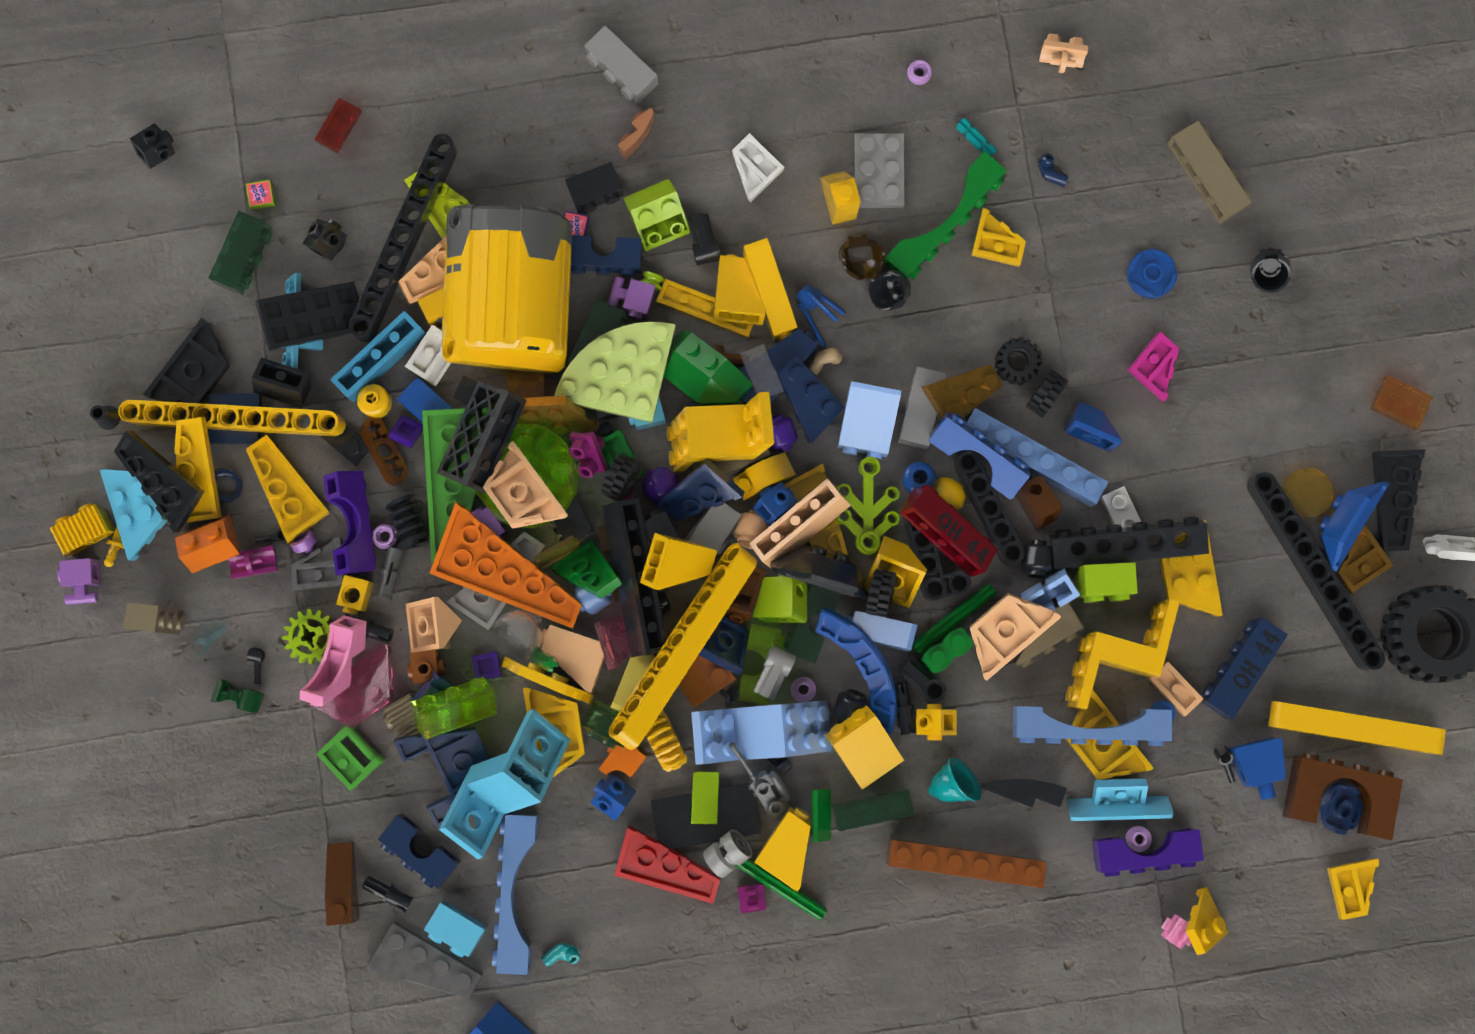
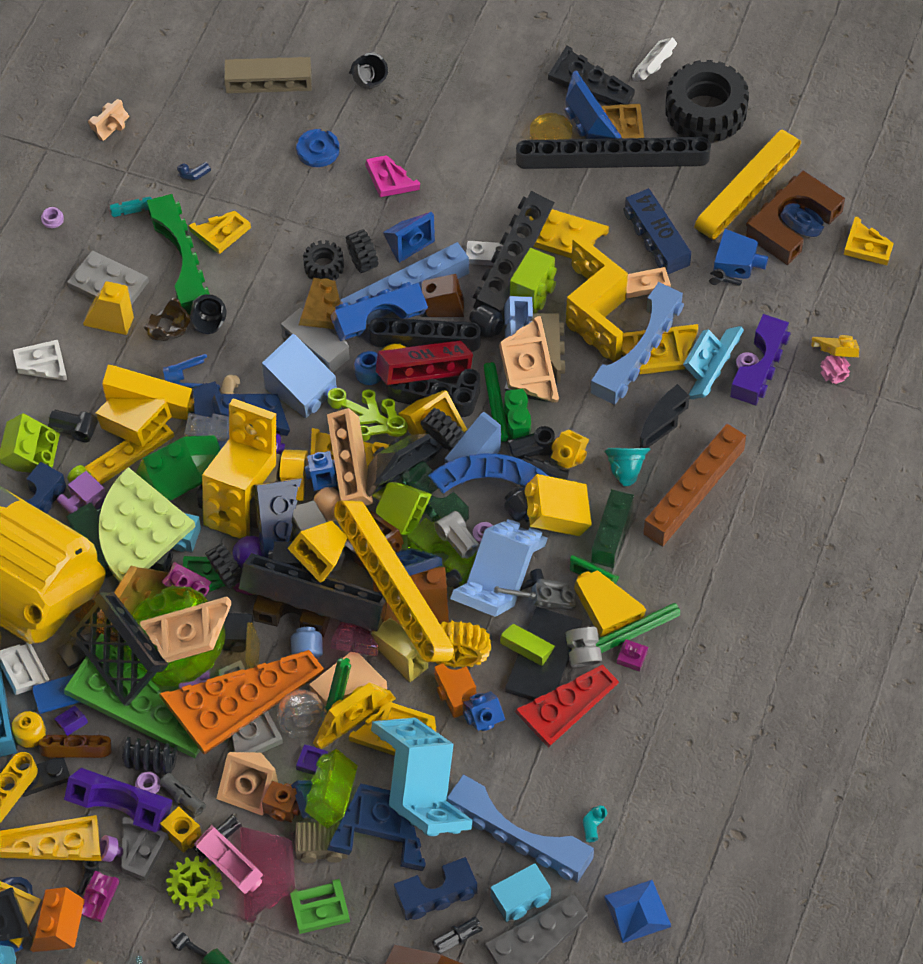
camera: 55 degrees left, 25 degrees down
(588, 570) = (284, 630): green wing -> none
(598, 721) = (420, 682): clear green brick -> none
(1401, 403) = (522, 44): clear orange plate -> none

